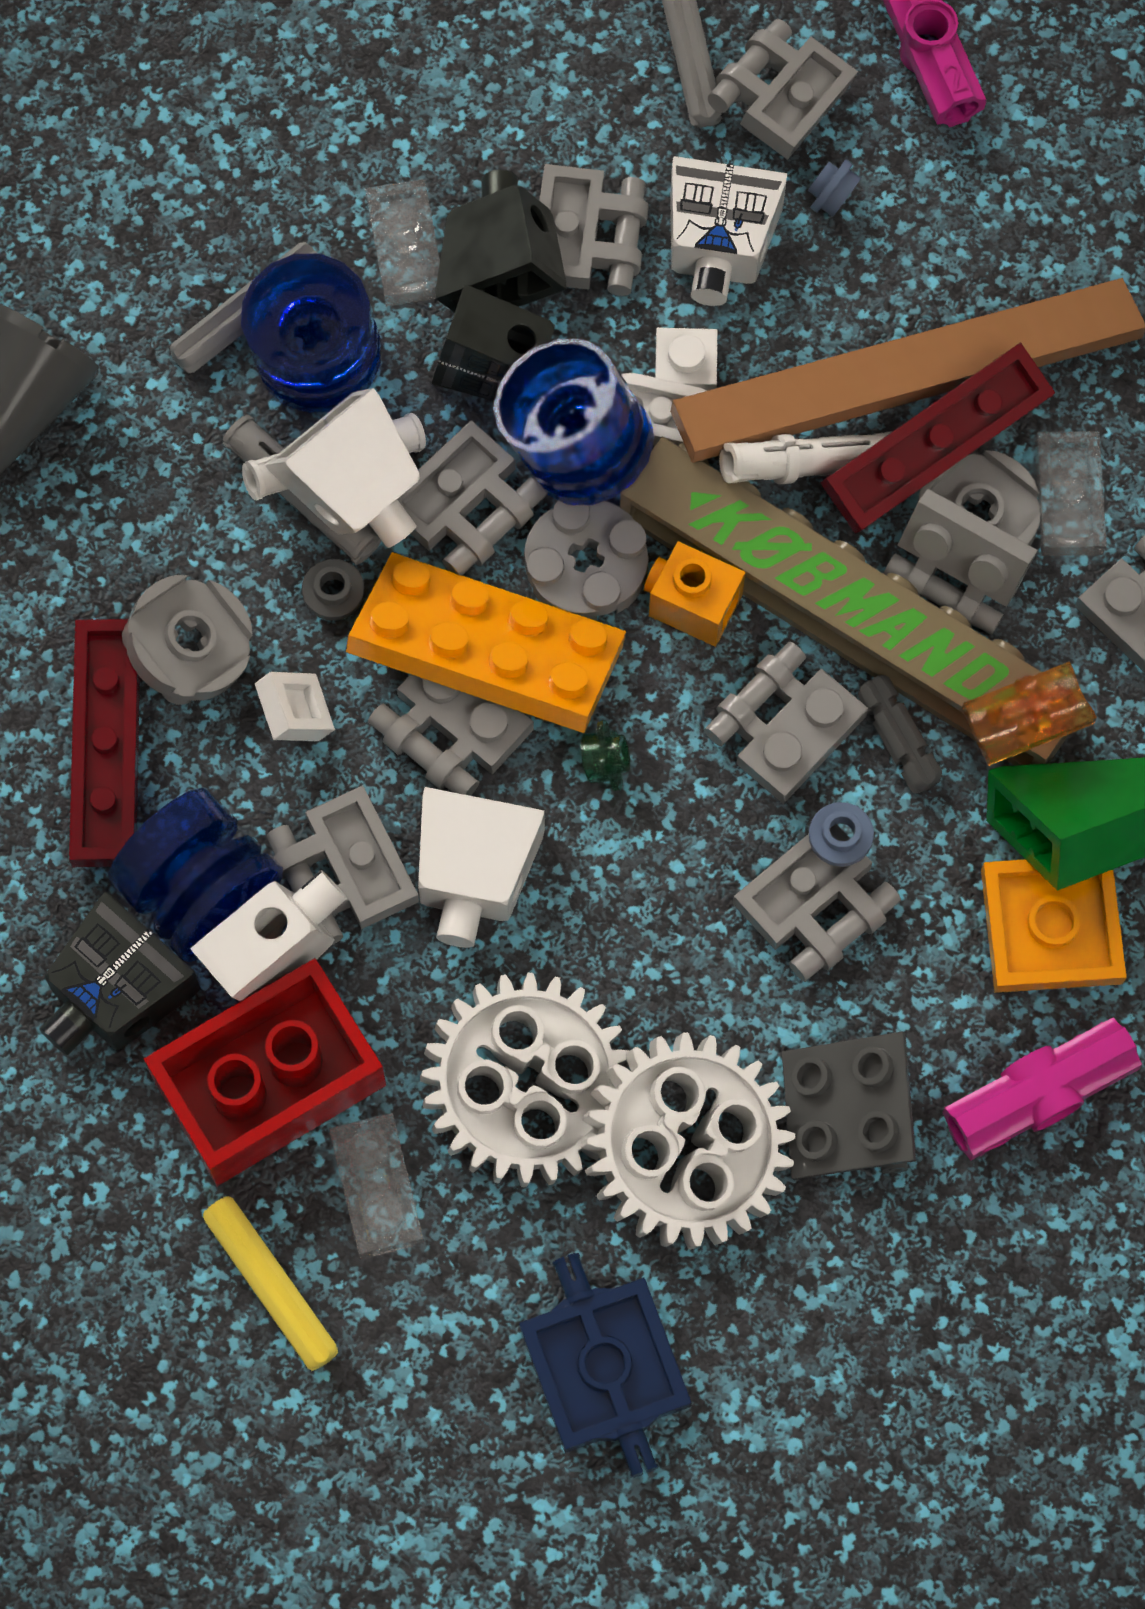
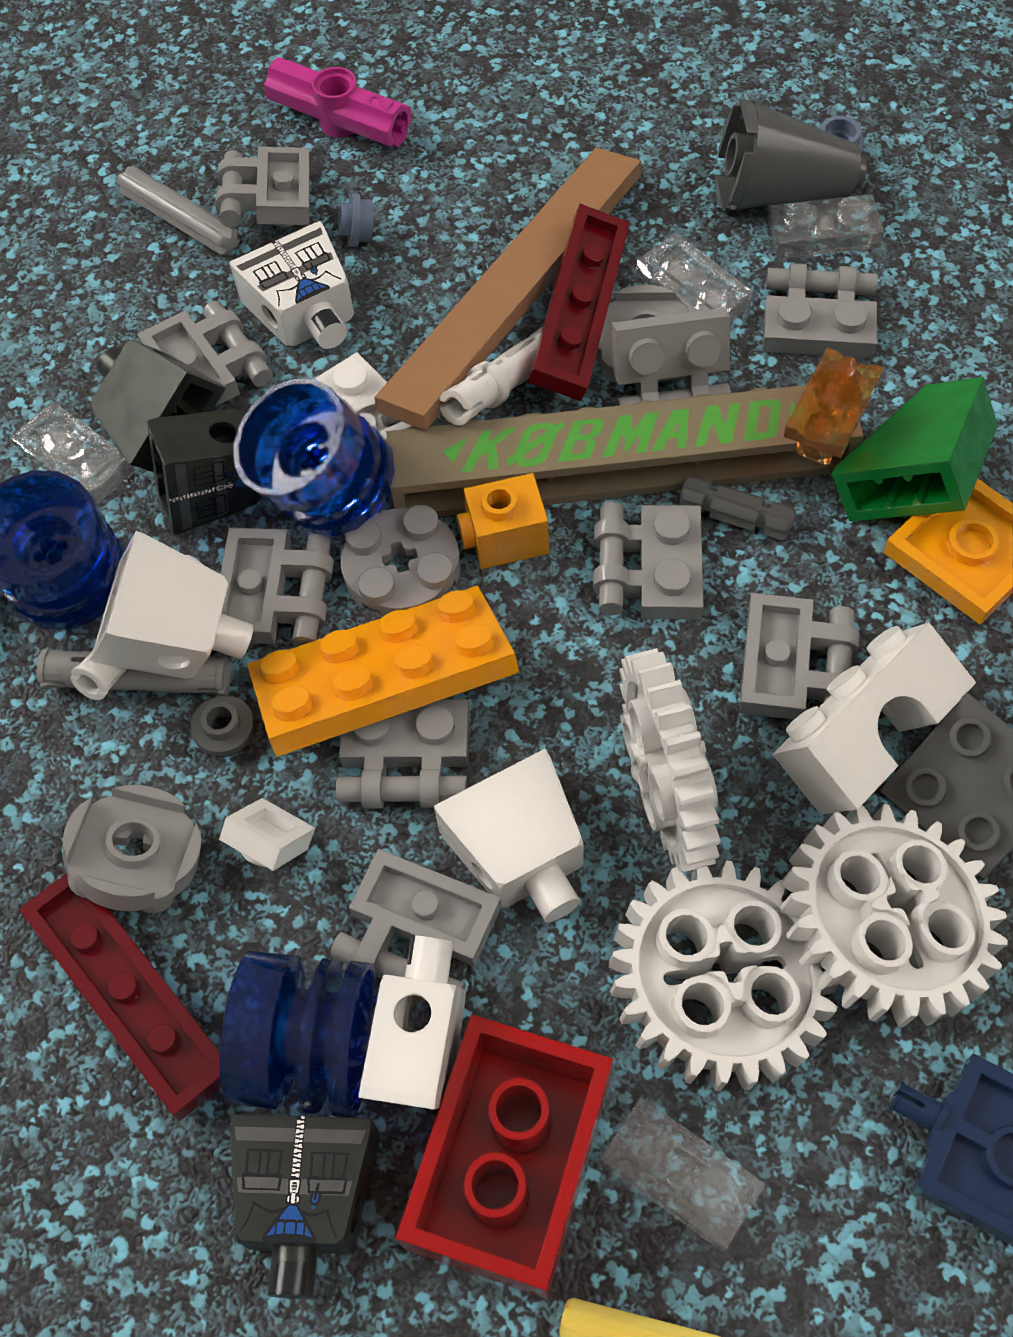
camera: 35 degrees left, 10 degrees down
(605, 756) = (547, 680): clear green plate -> none
(612, 894) = (669, 760): none -> white gear
(760, 986) = (837, 746): none -> white arch
(841, 852) = (773, 607): sand blue plate -> none

